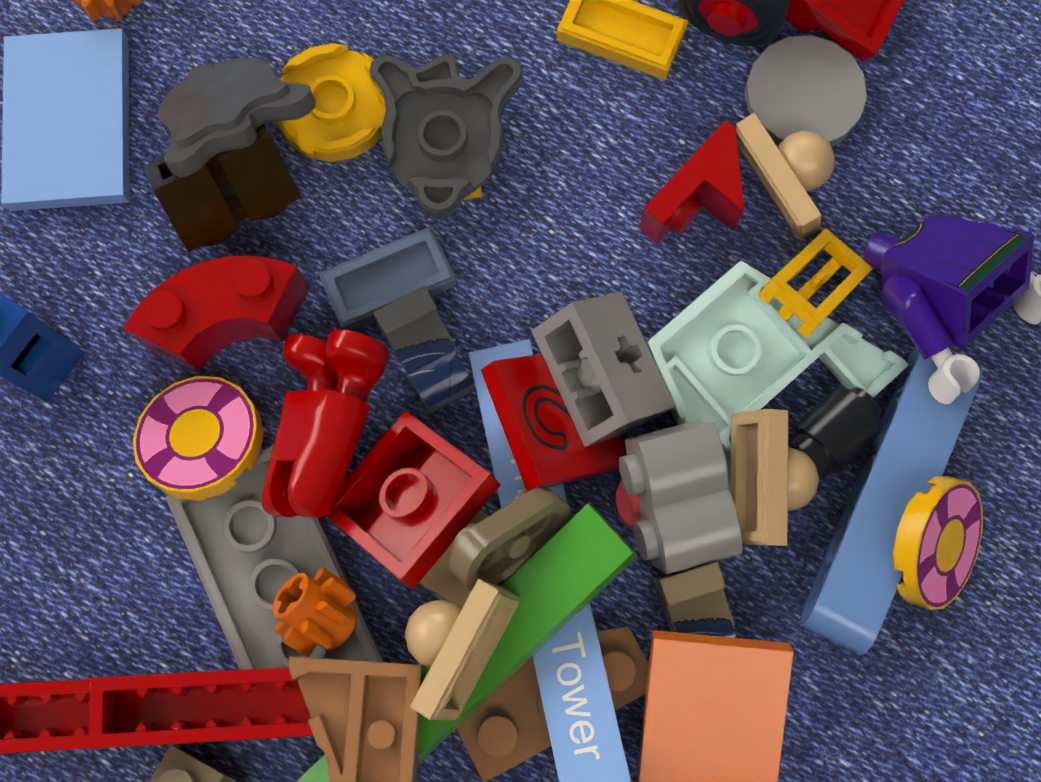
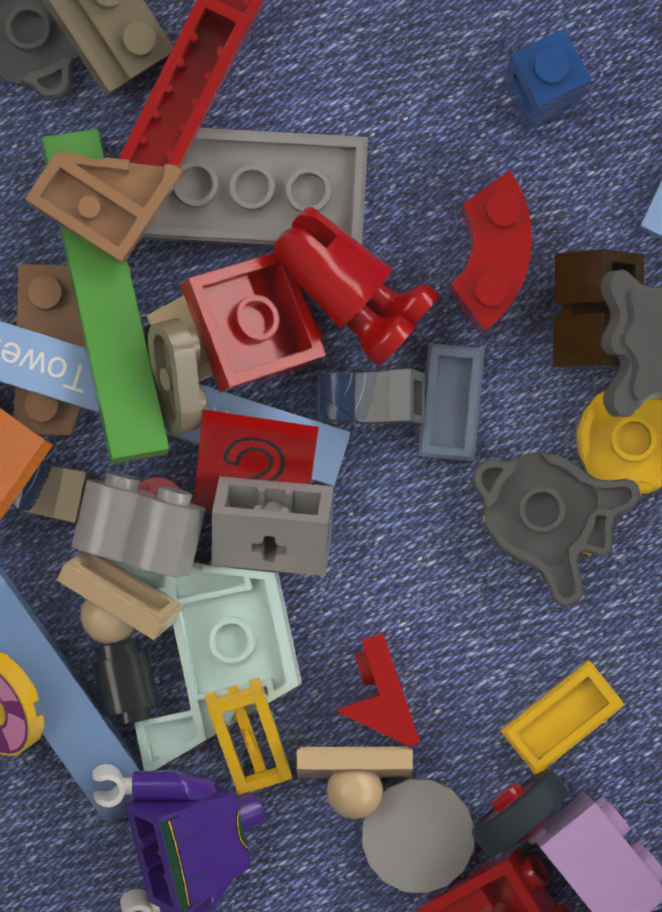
camera: 120 degrees right, 10 degrees up
(198, 438) = (399, 185): tile -> none
(314, 612) = (207, 205): orange gear -> none
(456, 646) = (120, 294): tan tile -> none

